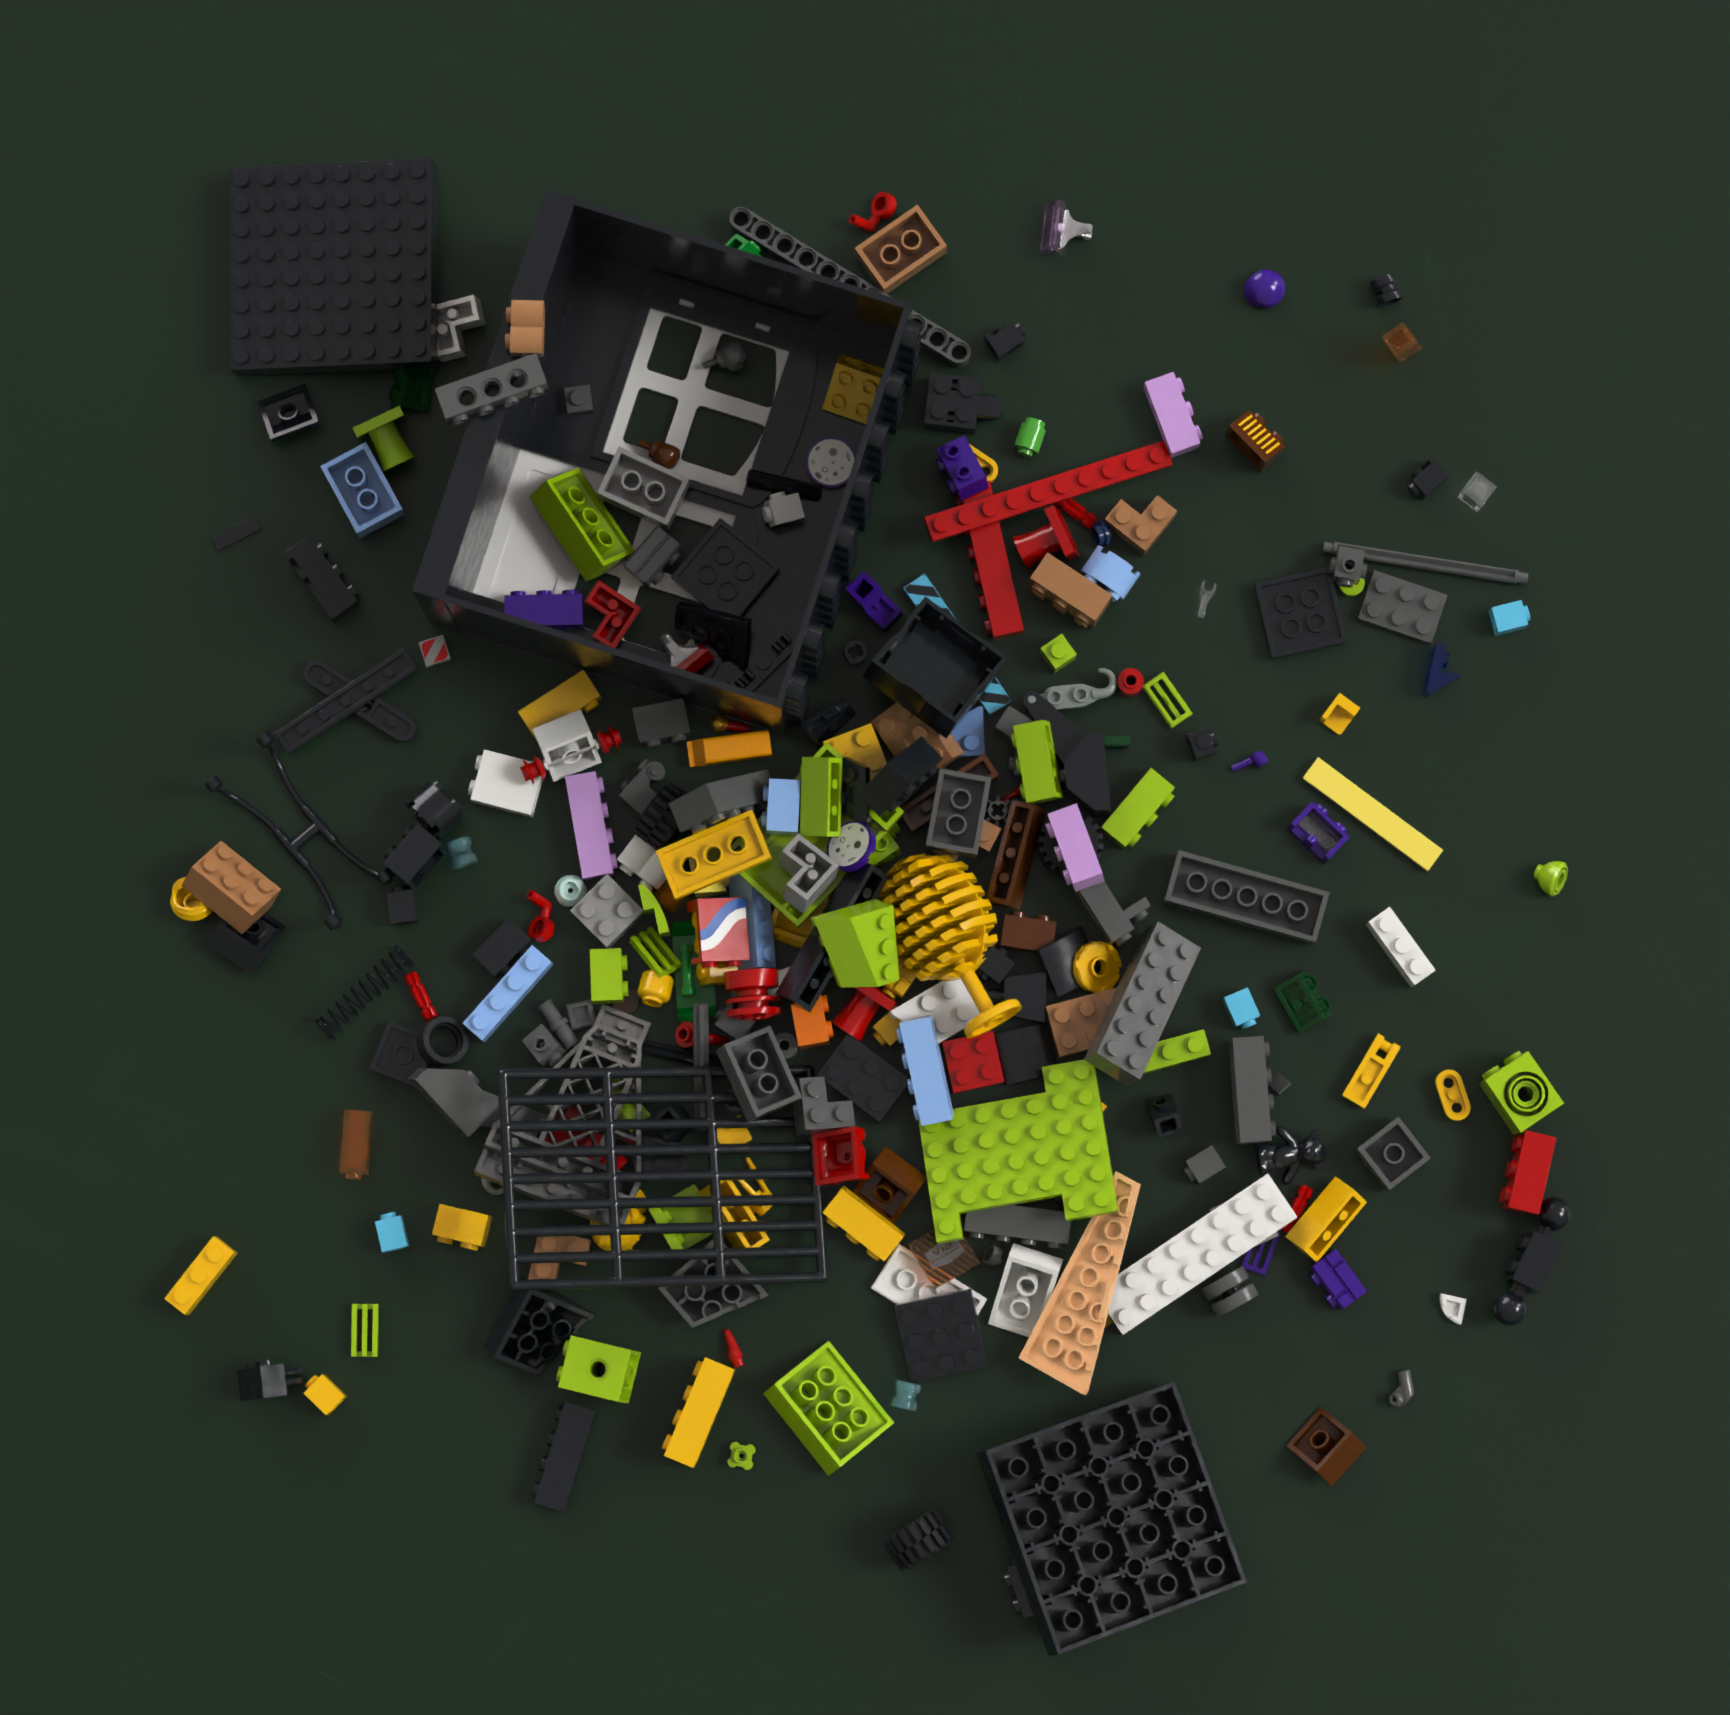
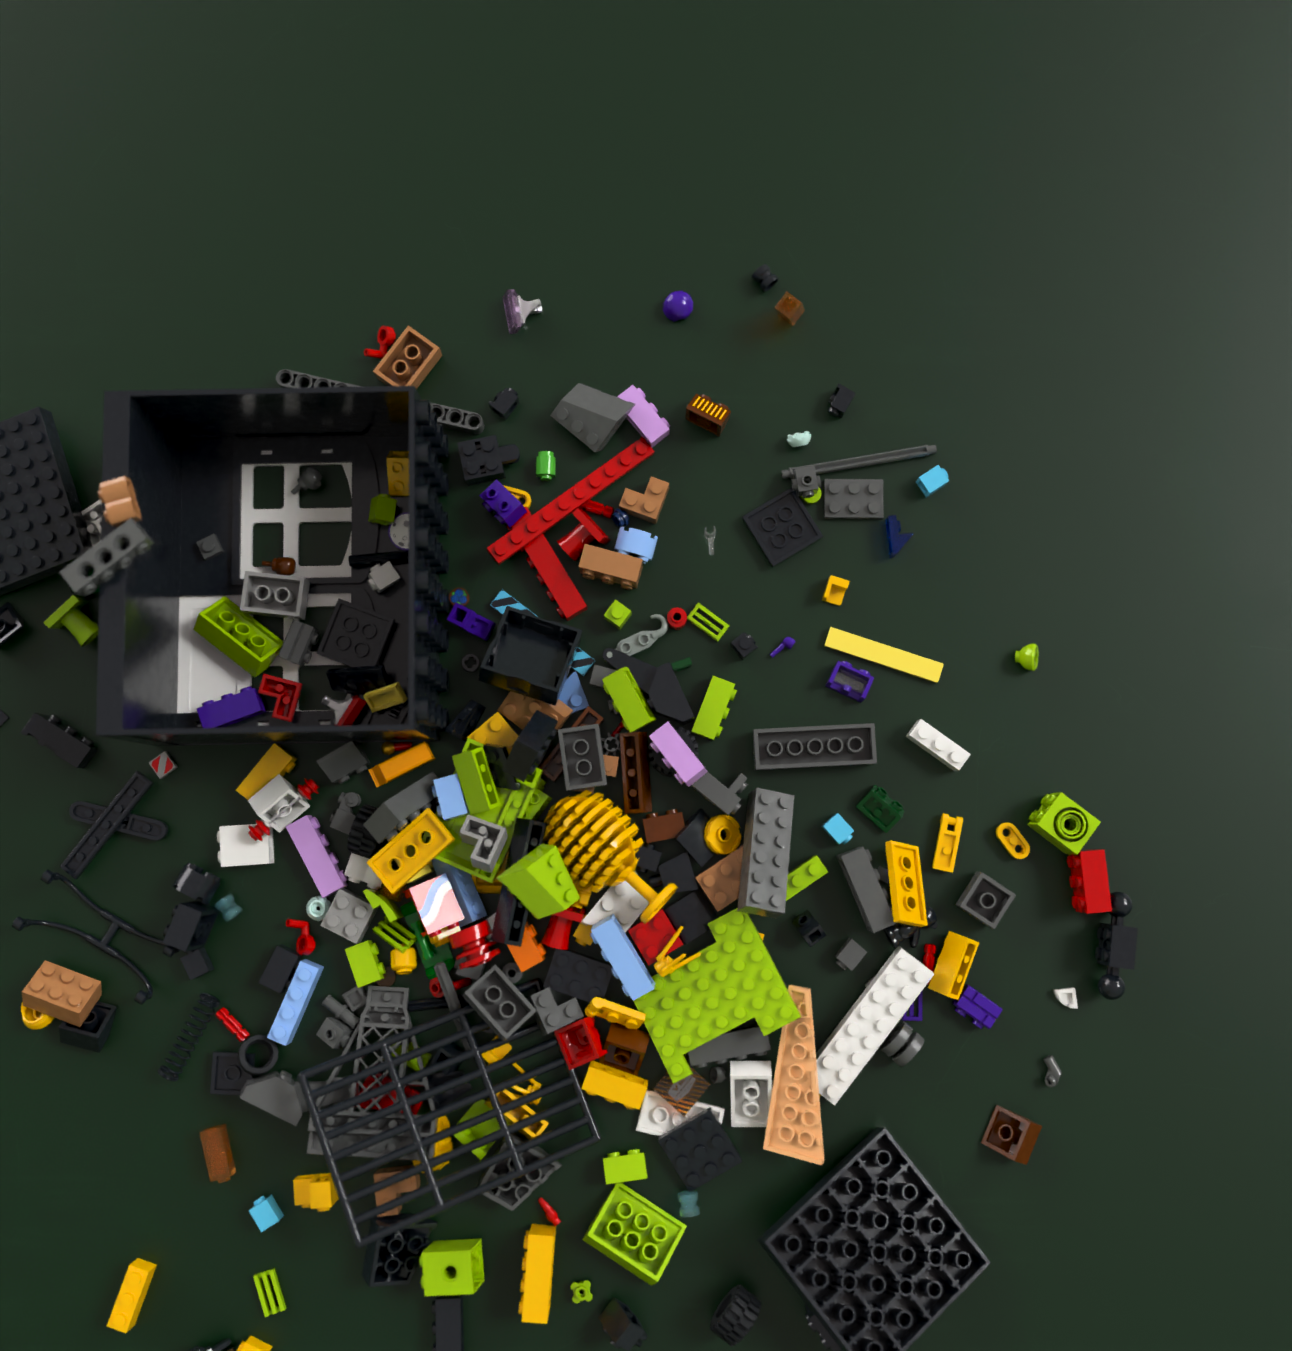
camera: 15 degrees left, 0 degrees up
(362, 490) = (68, 664): light blue brick -> none
(739, 659) = (385, 697): none -> light yellow tile
(778, 1507) = (622, 1325): none -> black brick
(809, 425) = (382, 509): none -> lime brick
(843, 1326) = (625, 1167): none -> lime brick
(853, 846) = (512, 810): white tile -> none
(869, 564) = (459, 596): none -> tile
(894, 1135) = (615, 1013): none -> yellow plate
(976, 1098) = (666, 964): none -> yellow plant
(1109, 393) = (591, 415): none -> dark grey wedge
(1301, 1062) = (899, 875): none -> yellow plate
(1359, 509) = (799, 439): none -> light aqua plate
(1477, 491) = (879, 398): clear brick -> none

